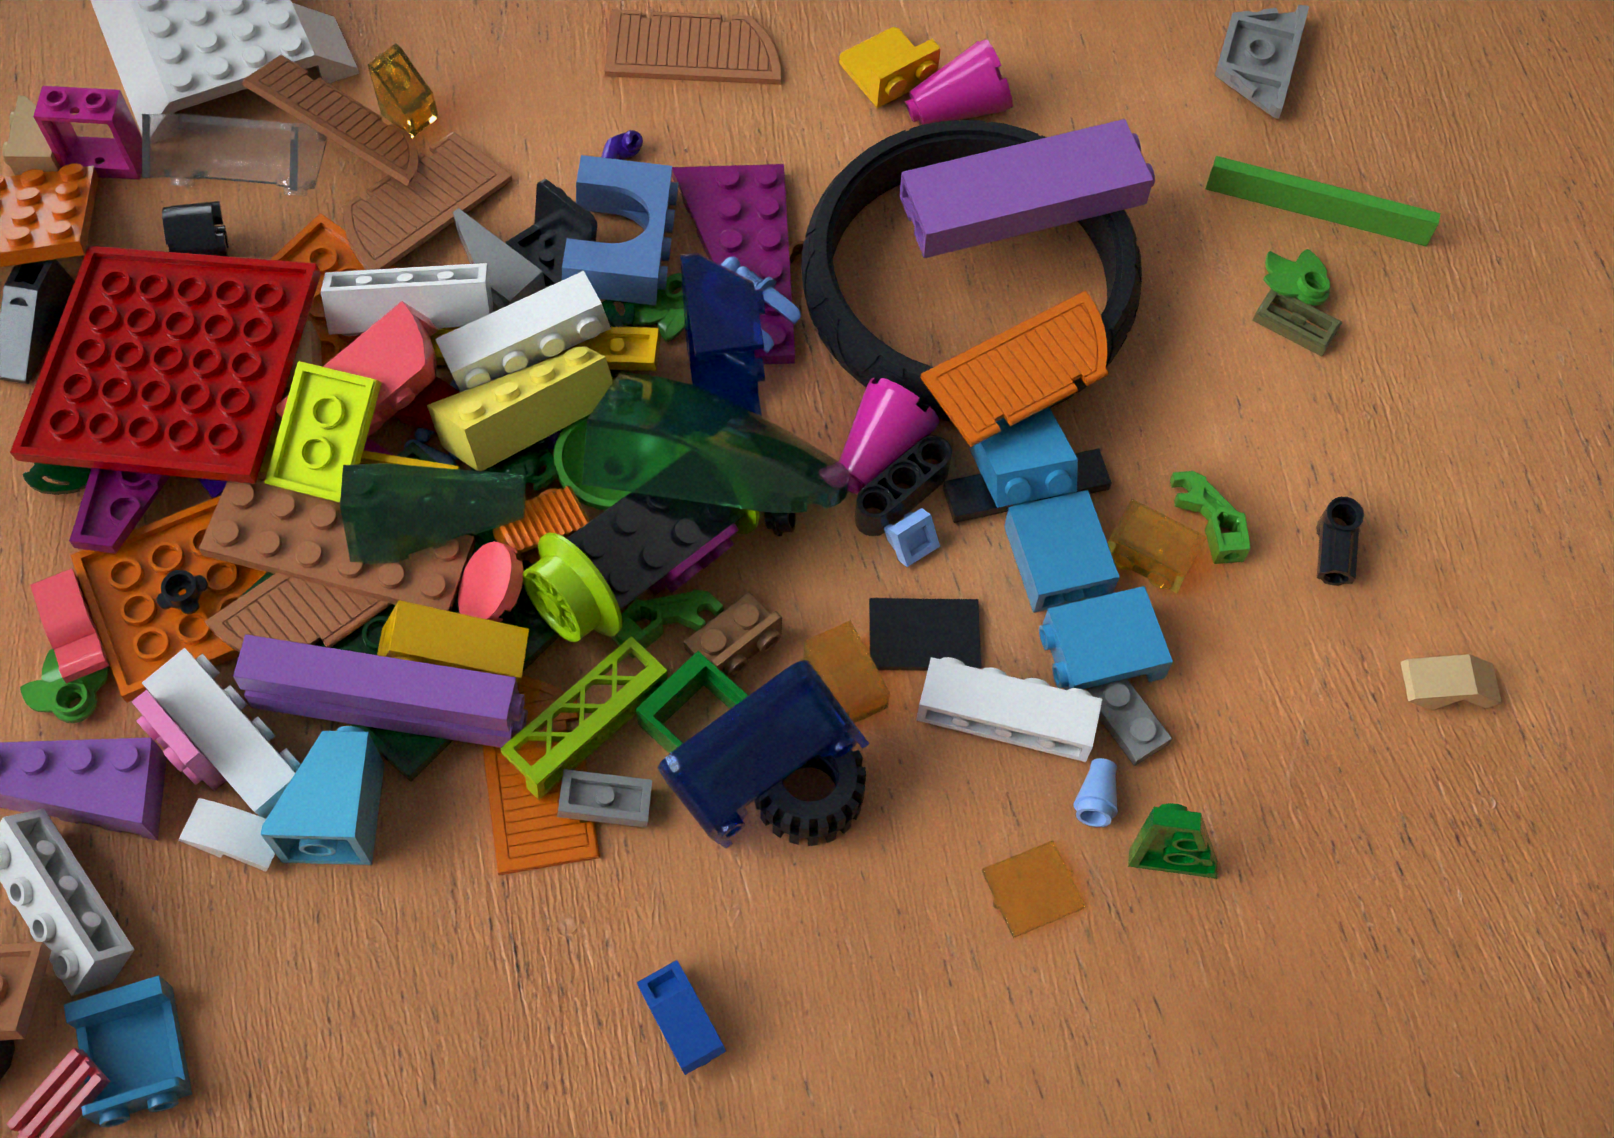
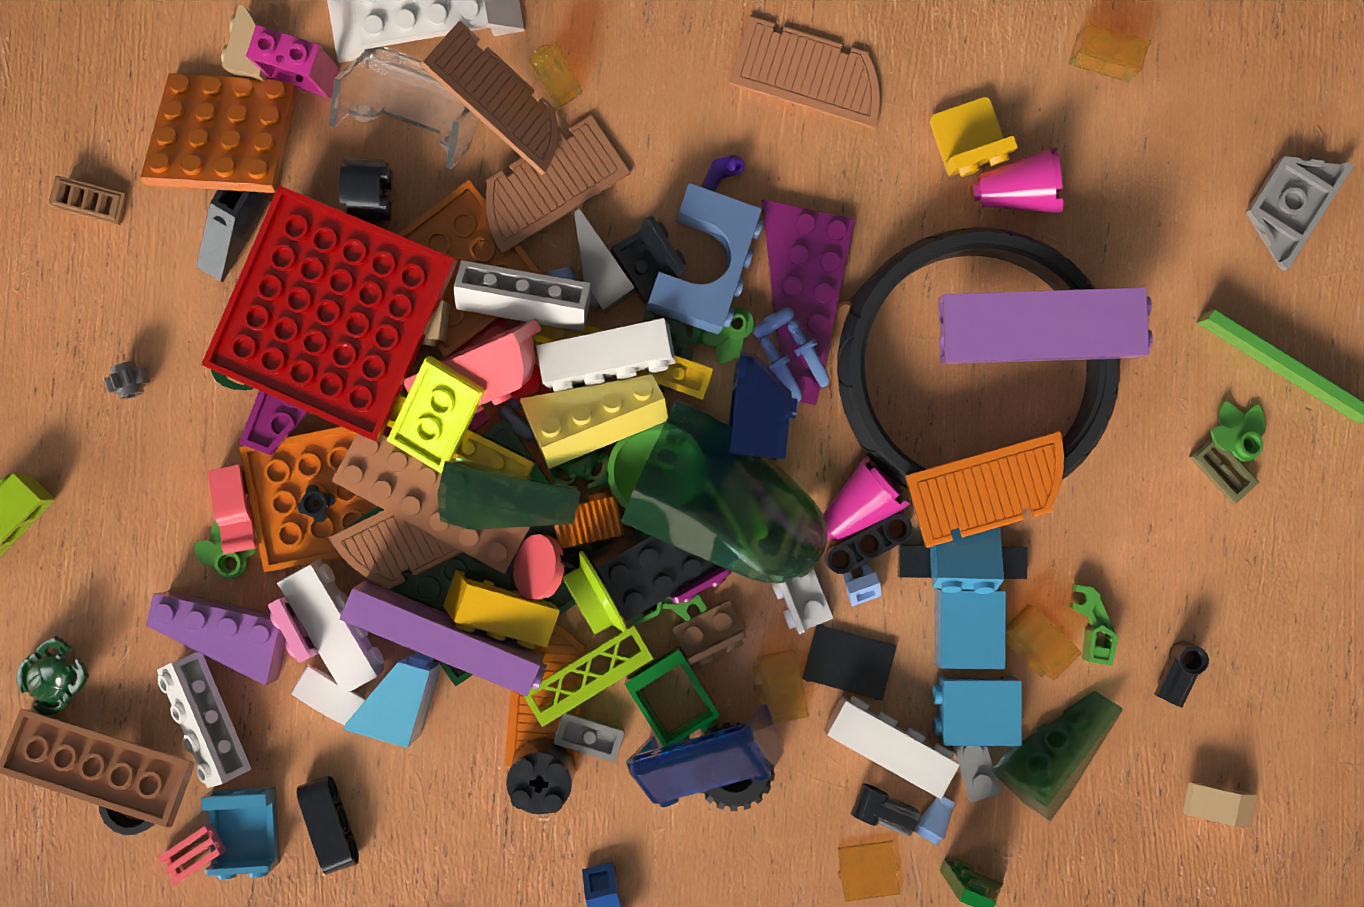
camera: 20 degrees right, 25 degrees up
(257, 1010) = (327, 825): none -> black beam
(529, 841) = (538, 793): none -> black brick
(840, 568) = (804, 602): none -> white bracket
(1015, 795) = (876, 807): none -> black piece
(1224, 682) = (1057, 754): none -> clear green wedge

